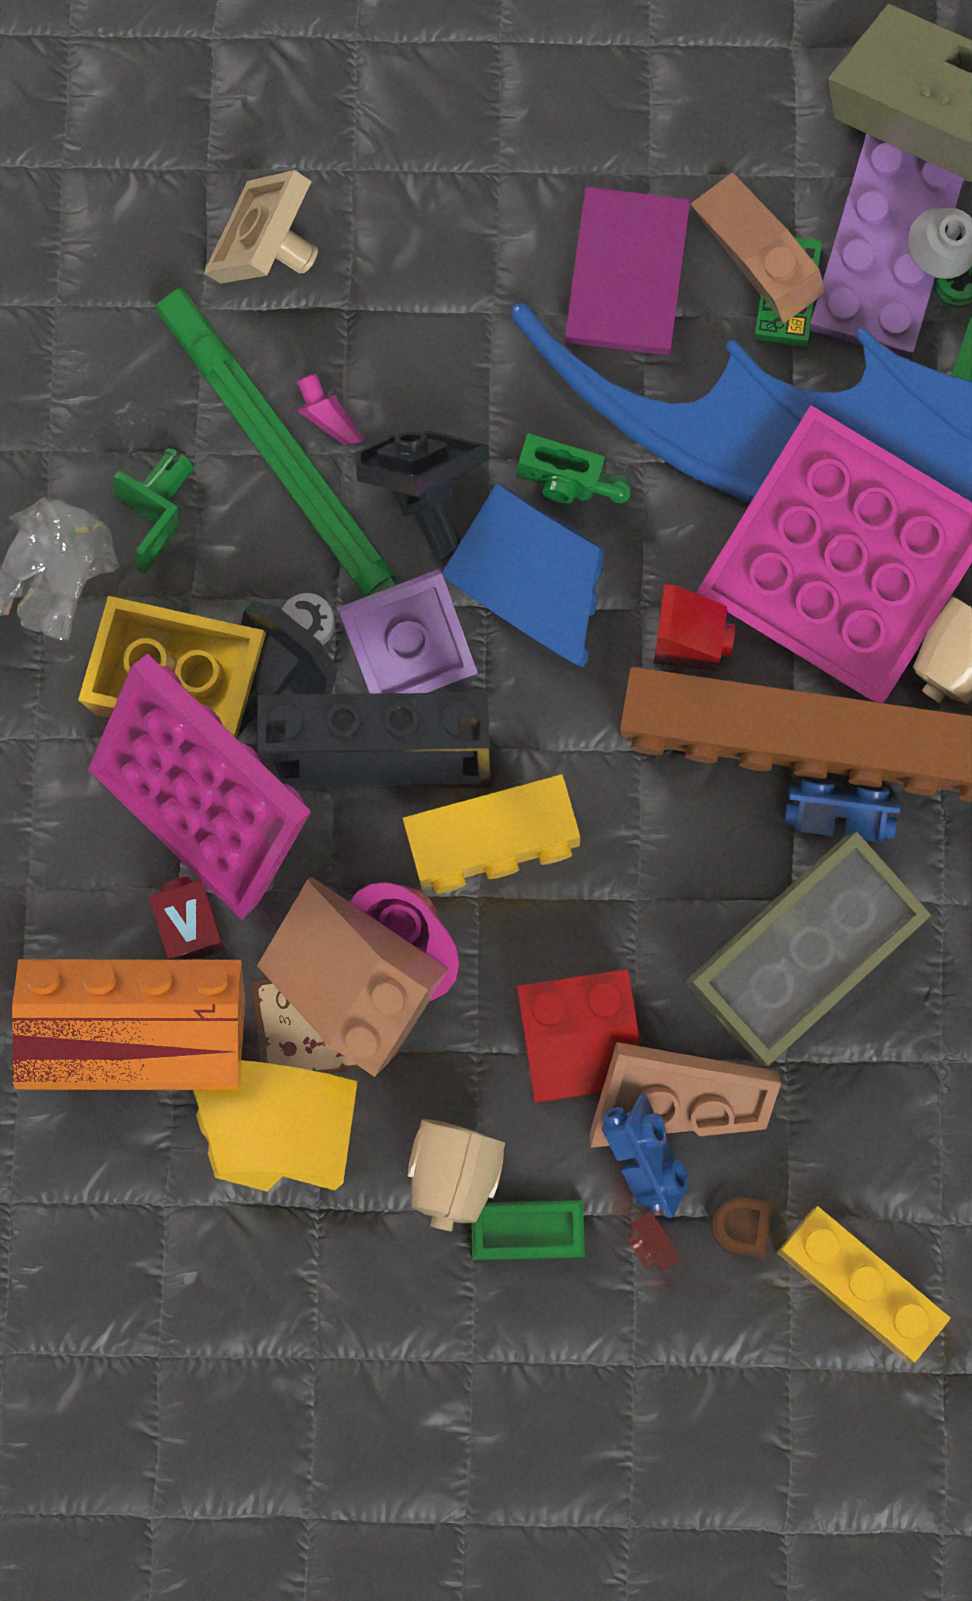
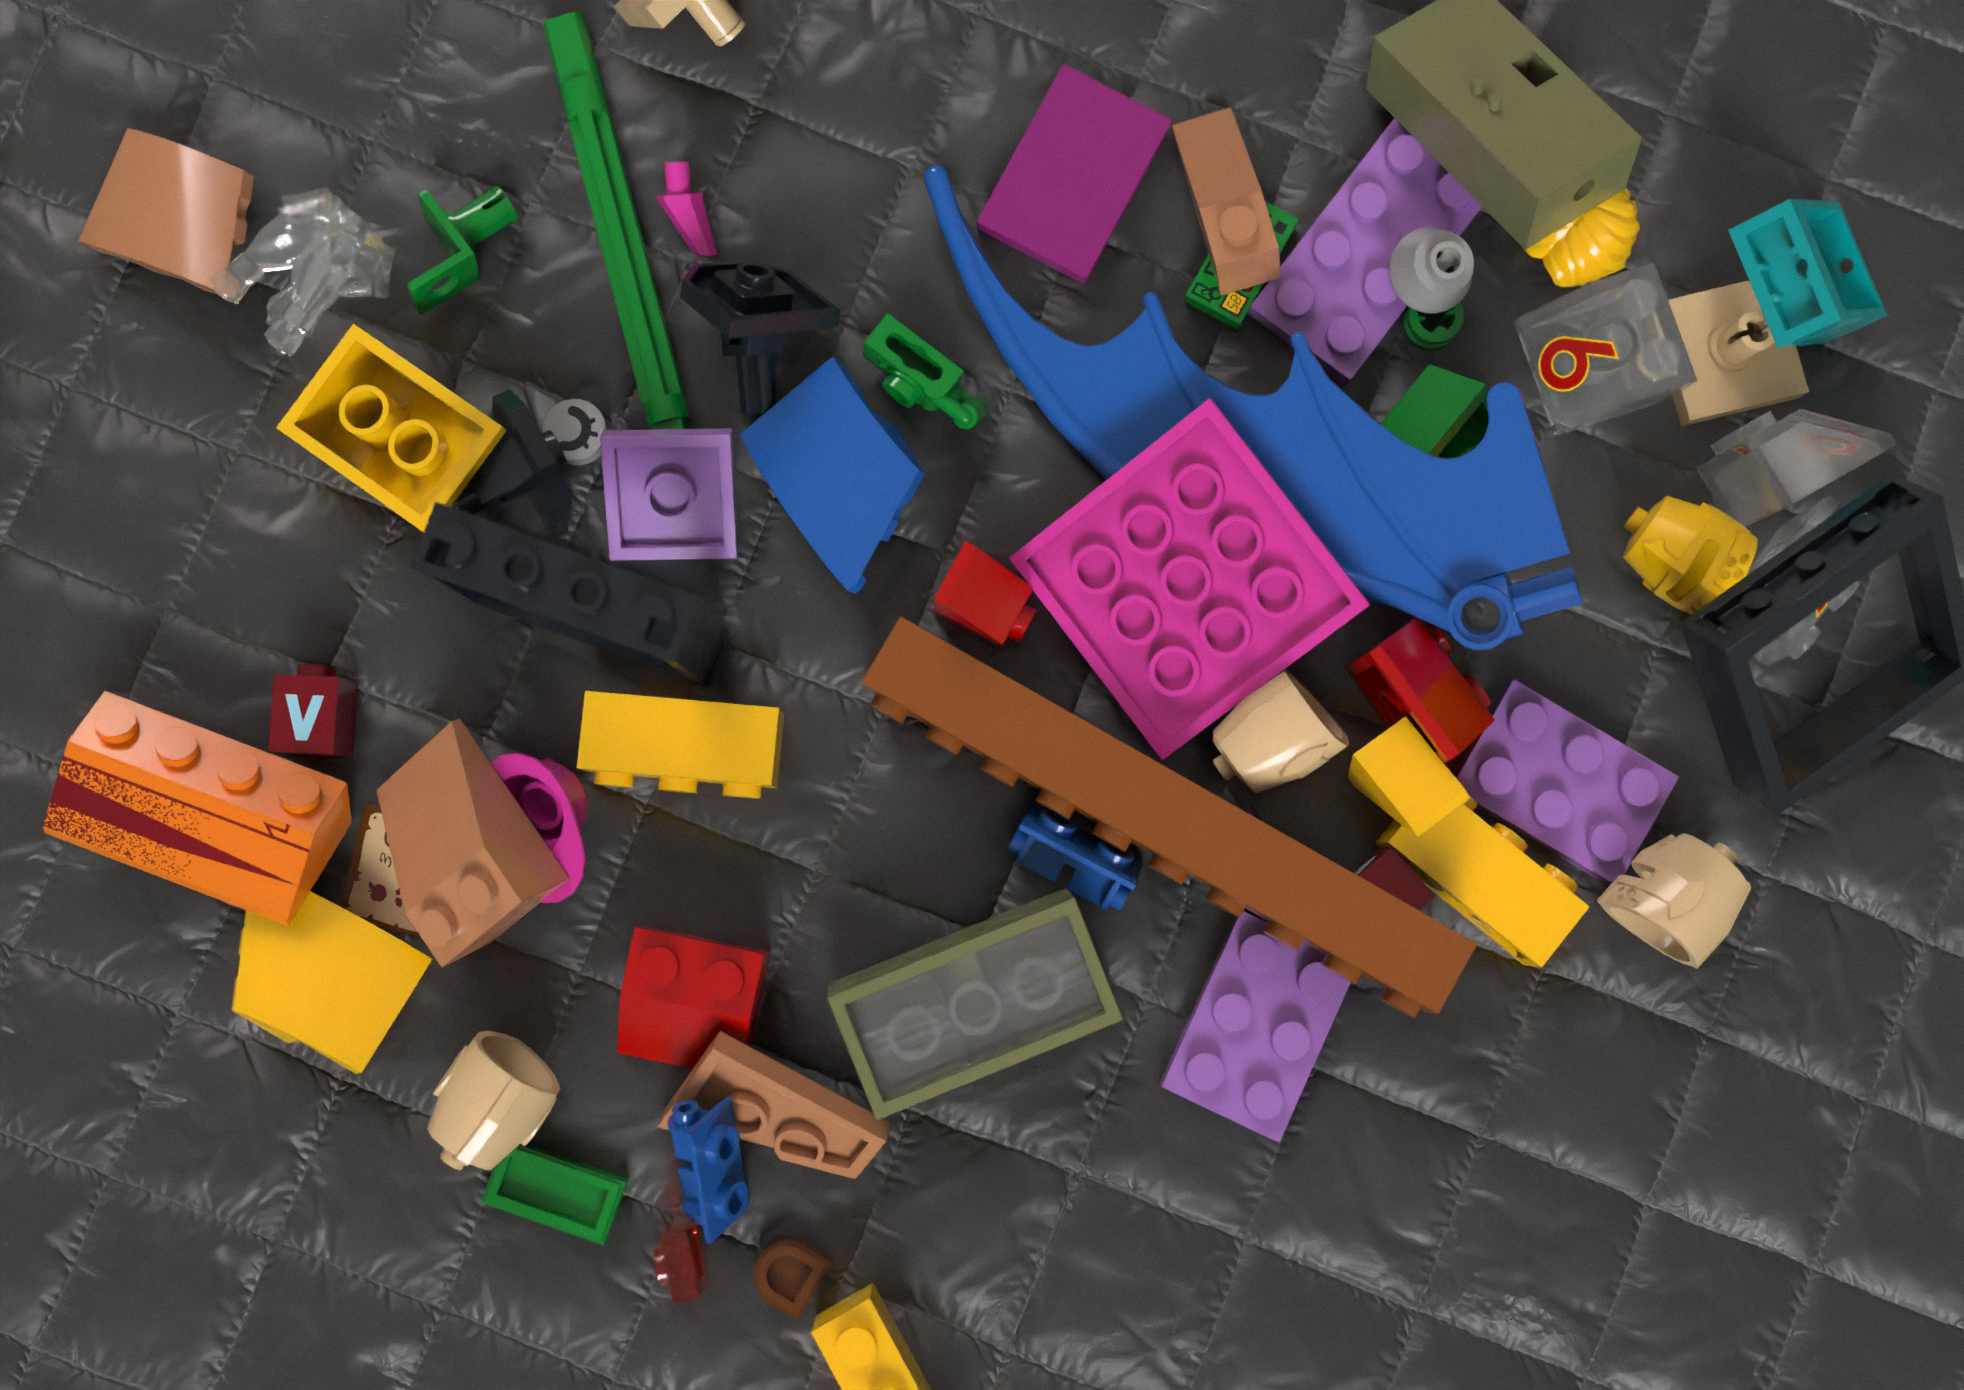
camera: 10 degrees right, 5 degrees up
(197, 786) = (359, 571): dark pink plate -> none

